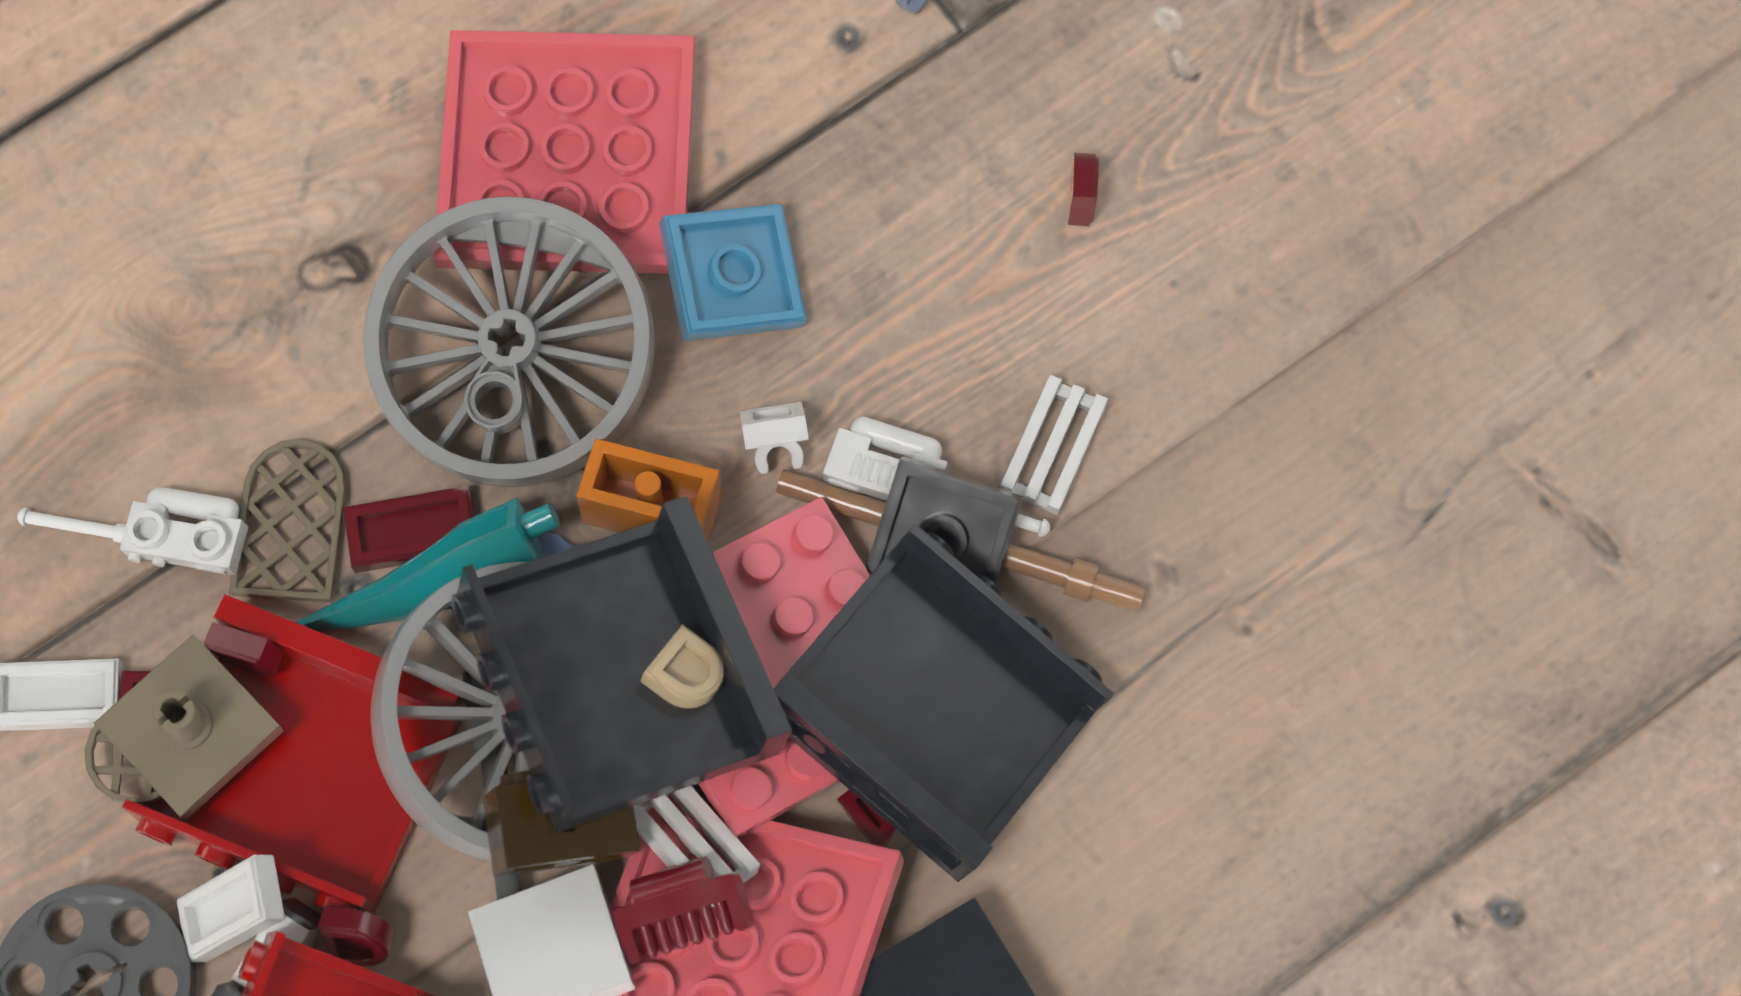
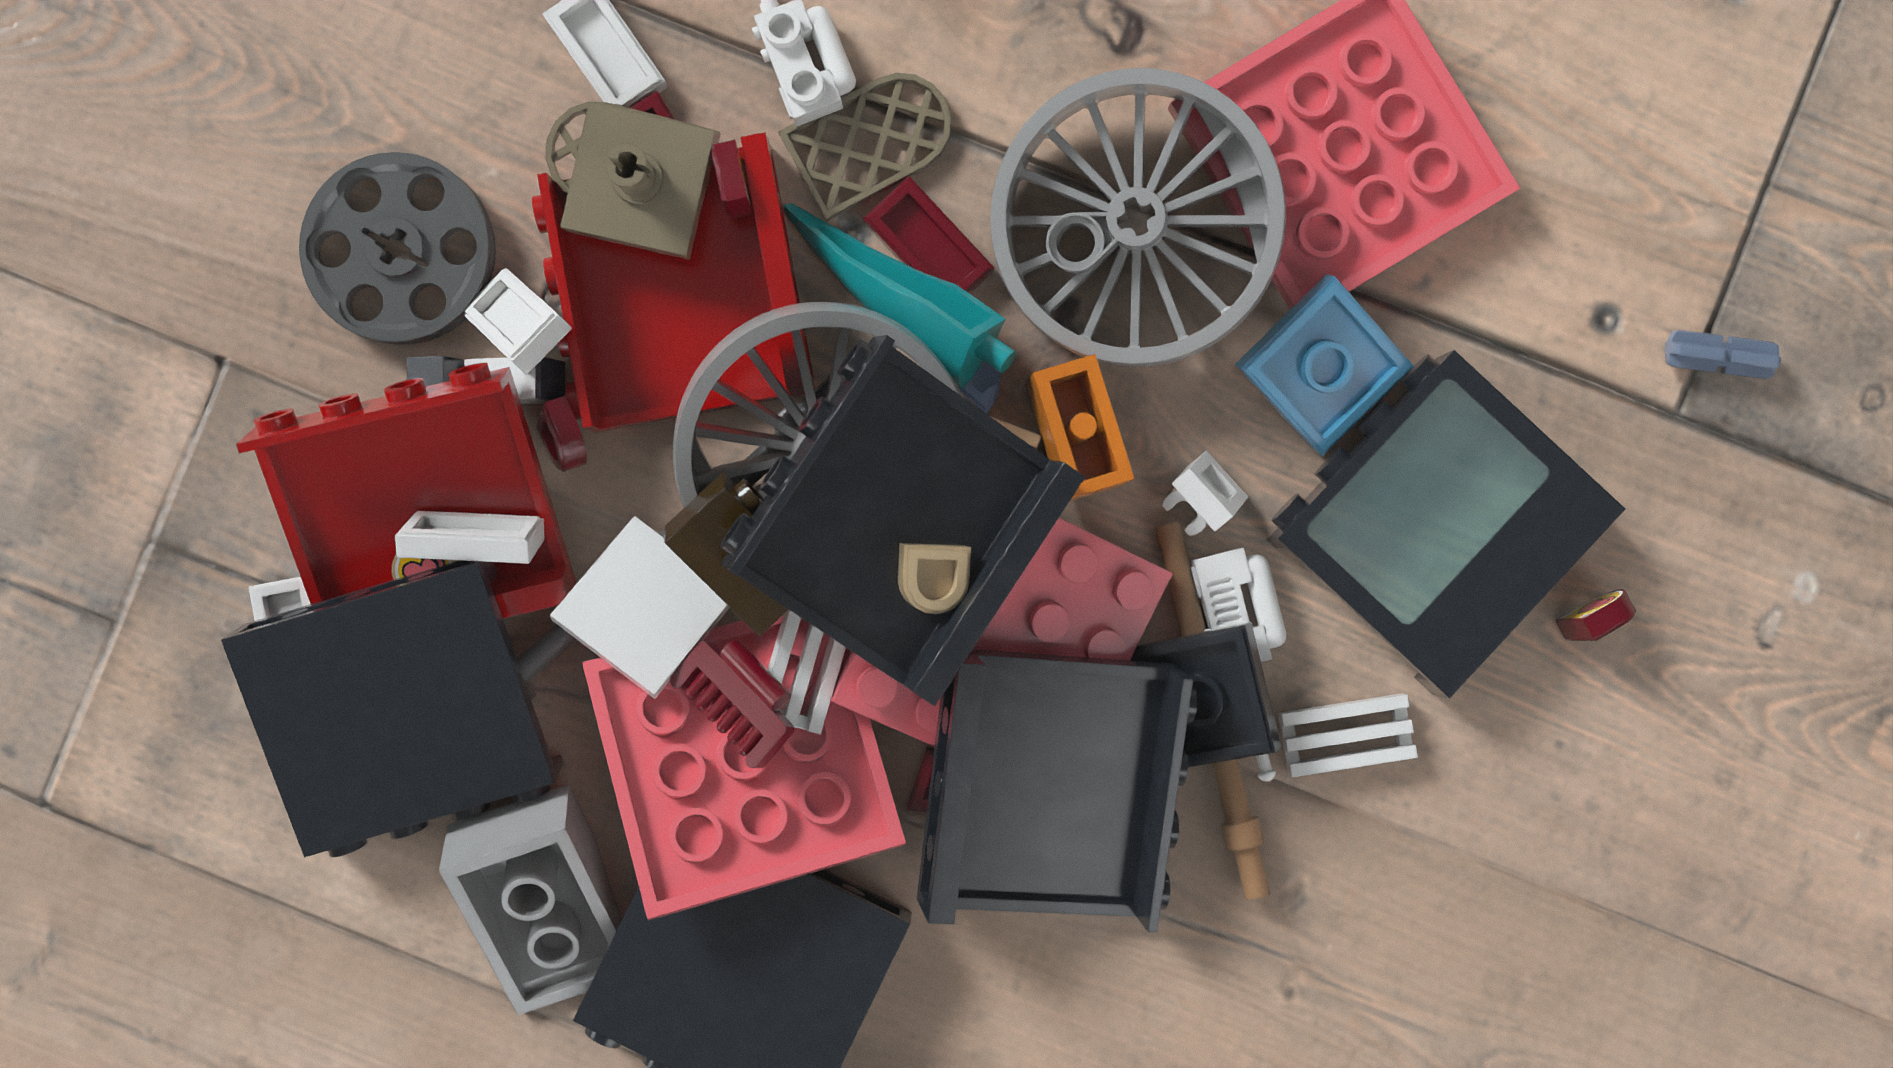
camera: 60 degrees right, 15 degrees up
(923, 255) = (1445, 520): none -> panel

